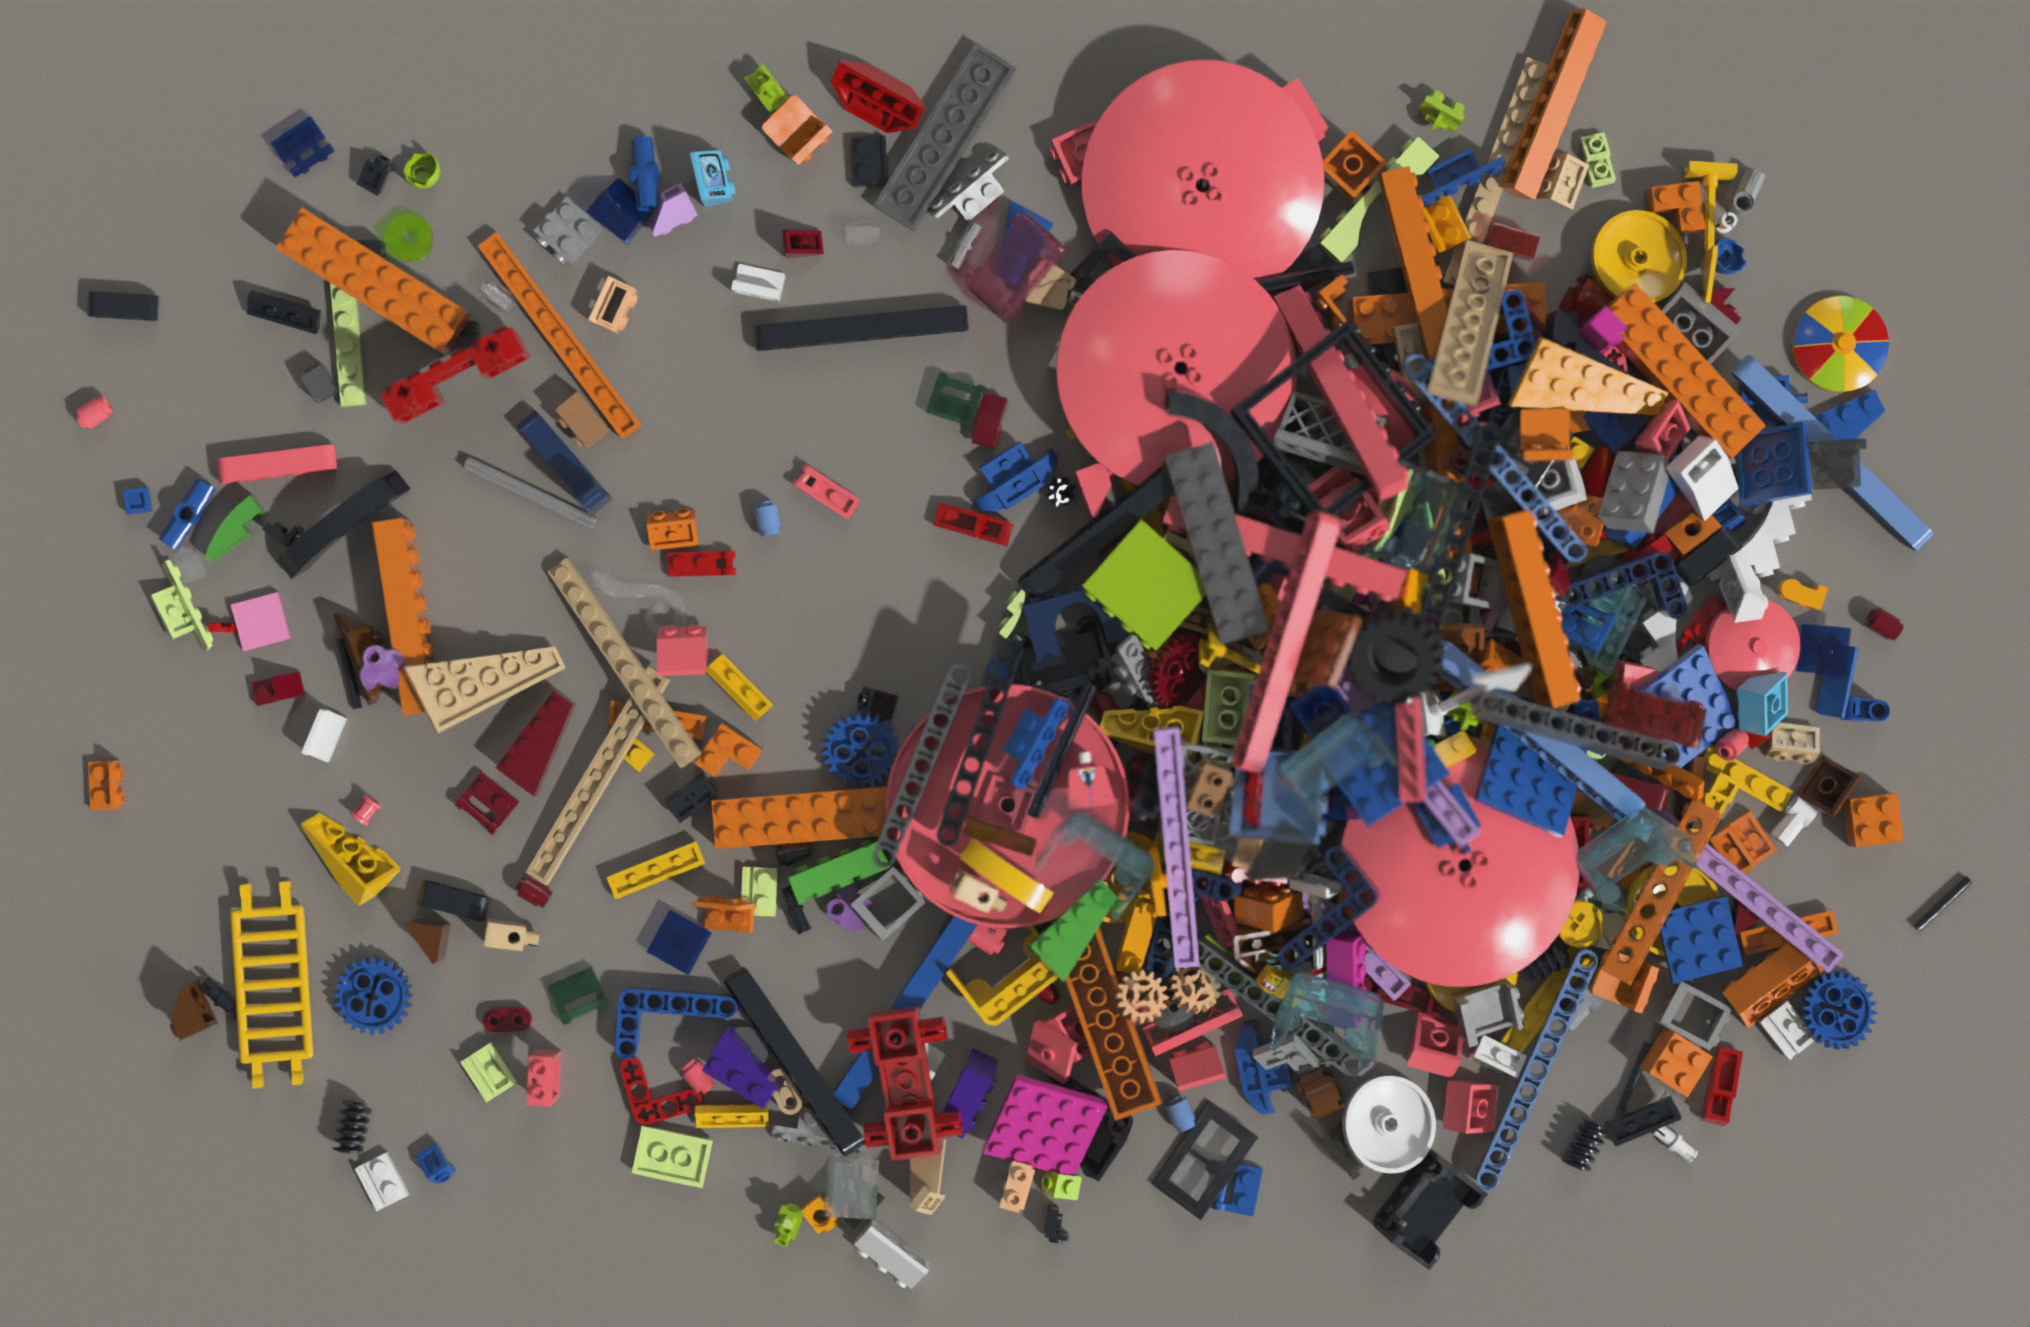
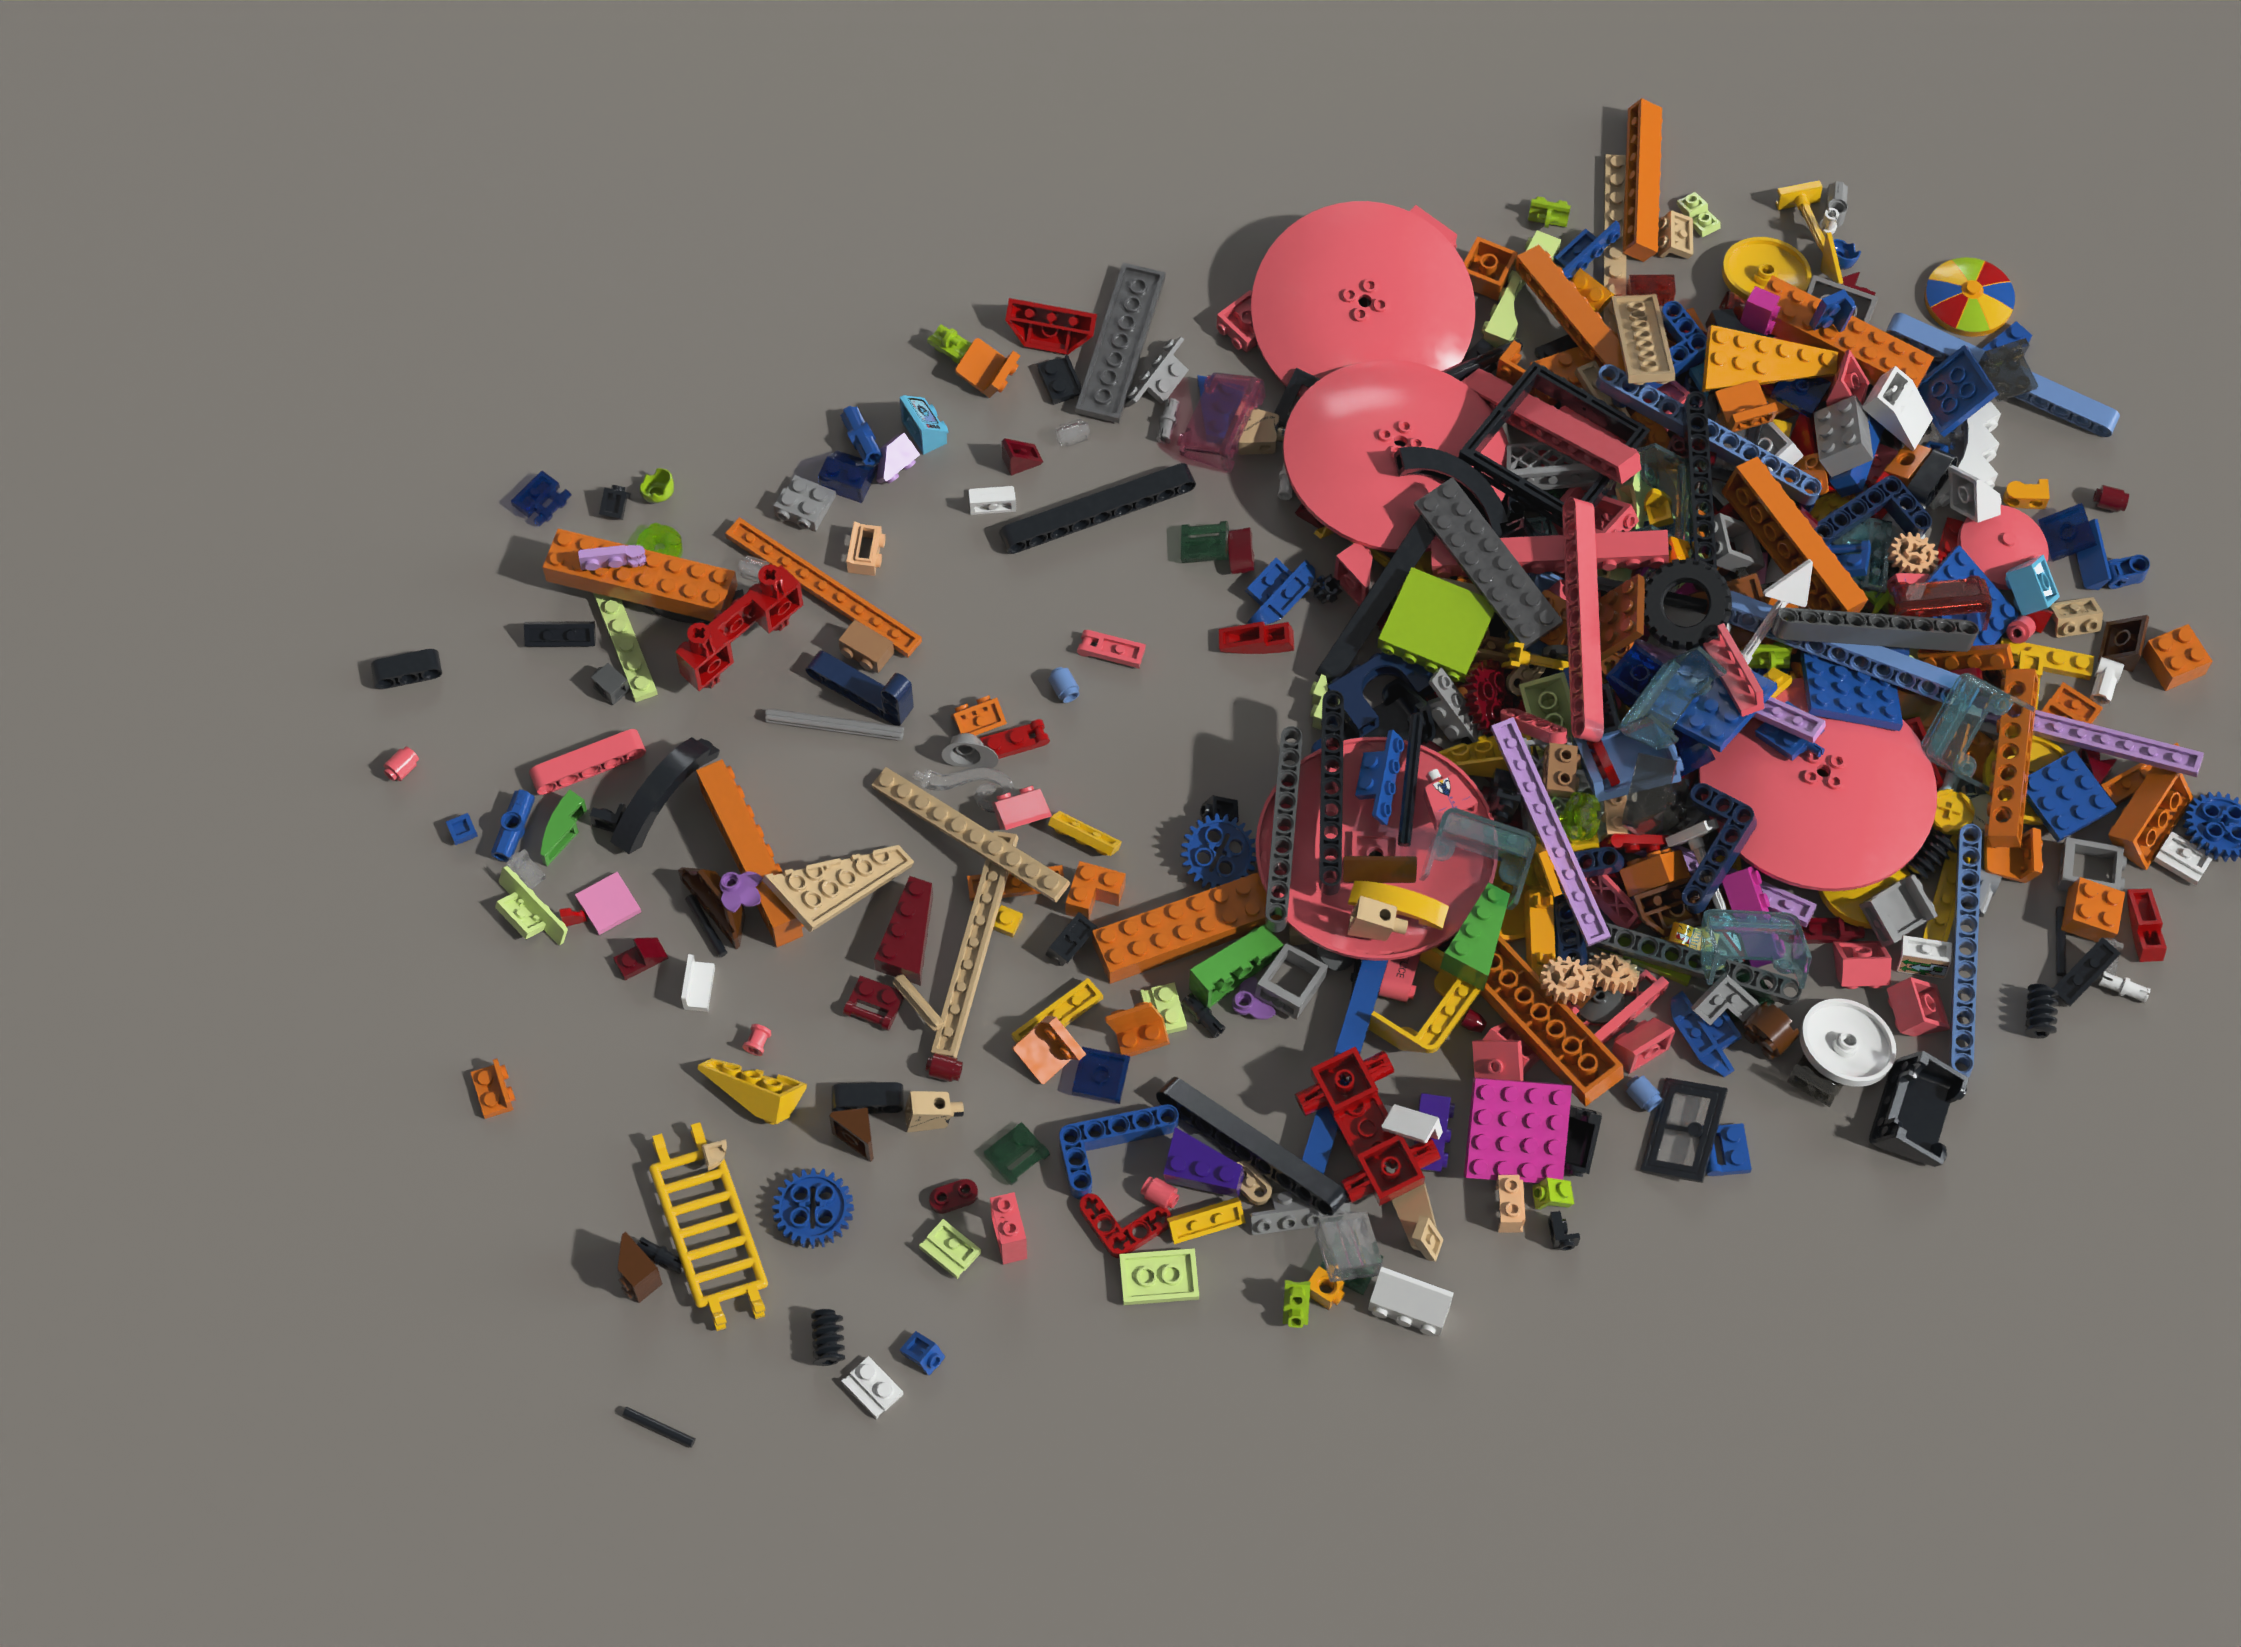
camera: 15 degrees left, 25 degrees down
(179, 1161) = (659, 1427): none -> black bar
(294, 917) = (714, 1153): none -> tan tile
(345, 266) = (612, 557): none -> lavender hinge
(526, 820) = (917, 1001): none -> tan axle
(634, 905) = (1047, 1049): none -> orange bracket
(650, 563) = (969, 751): none -> light grey piece
(792, 852) = (1180, 965): black cone -> none
(942, 1101) = (1412, 1124): none -> white panel
(1206, 725) = (1536, 726): none -> coral beam
(1211, 843) = (1579, 807): none -> clear neon green plate
(1414, 524) = (1658, 508): none -> yellow tile
(1656, 651) = (1913, 554): none -> light nougat gear
(1683, 201) = (1783, 223): orange brick -> none
(1684, 358) = (1834, 310): none -> blue bracket

